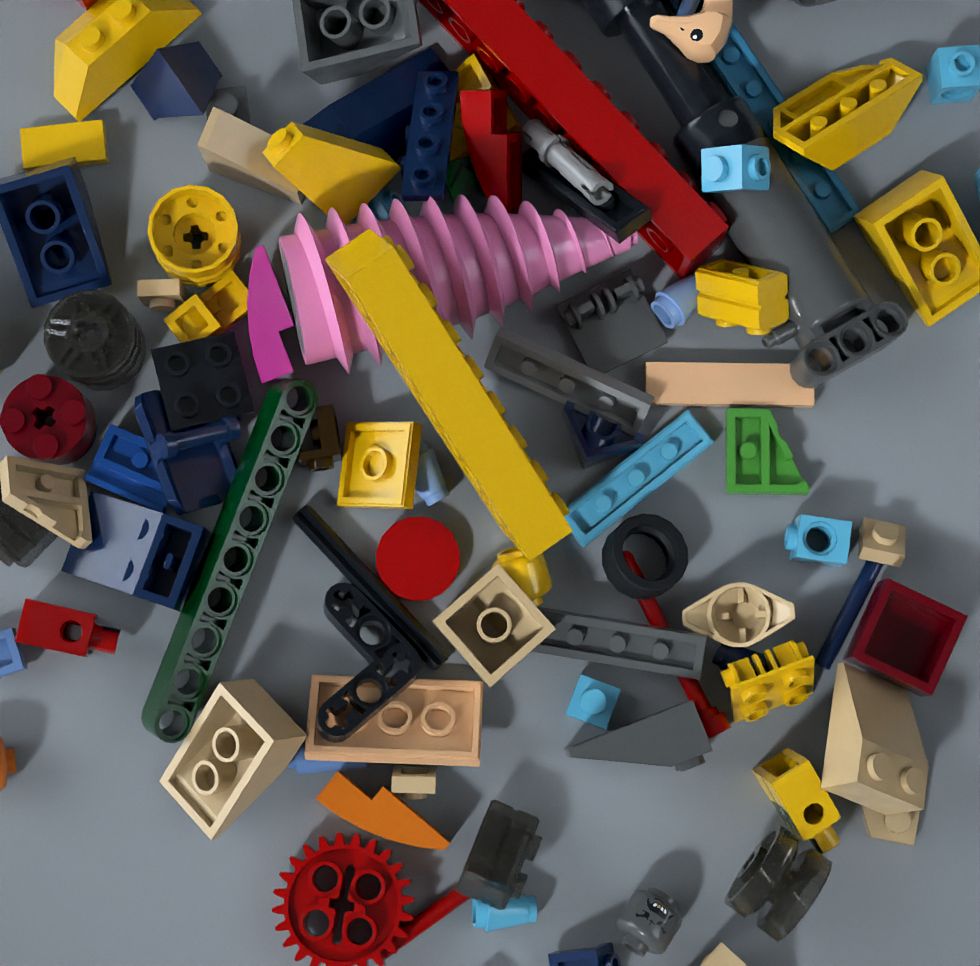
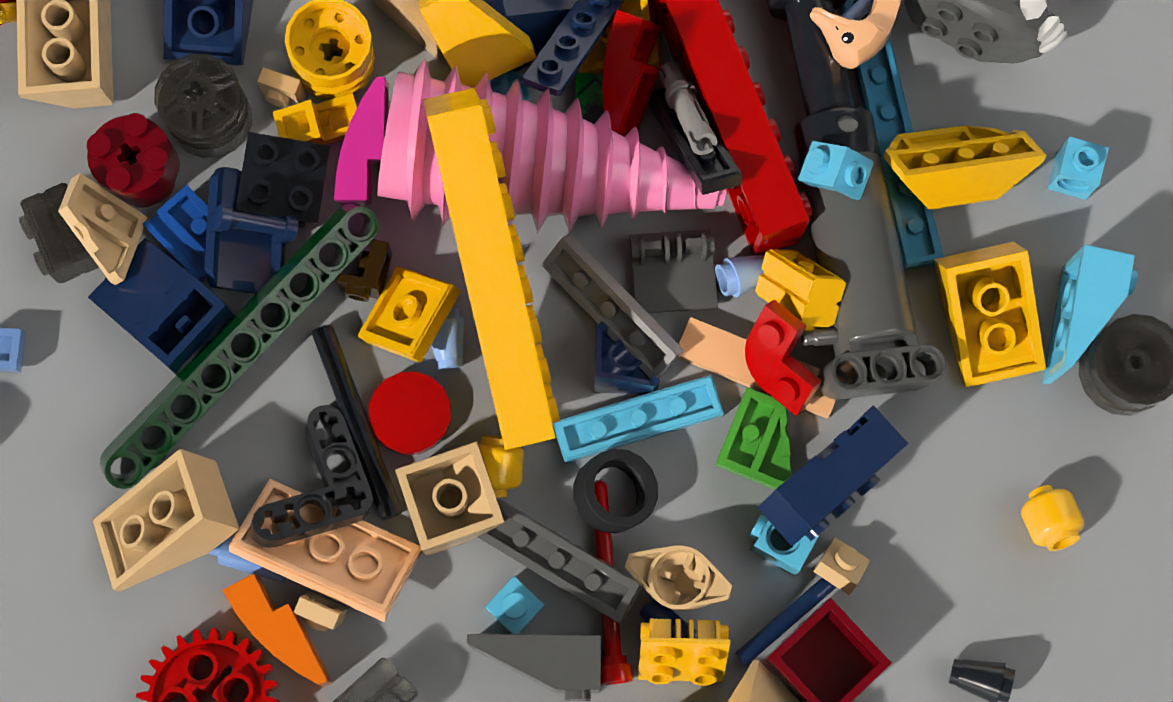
camera: 20 degrees right, 5 degrees down
(44, 627) = (52, 340): red torso -> none
(742, 377) = (770, 359): none -> red plate
(844, 464) = (832, 477): none -> dark blue wedge

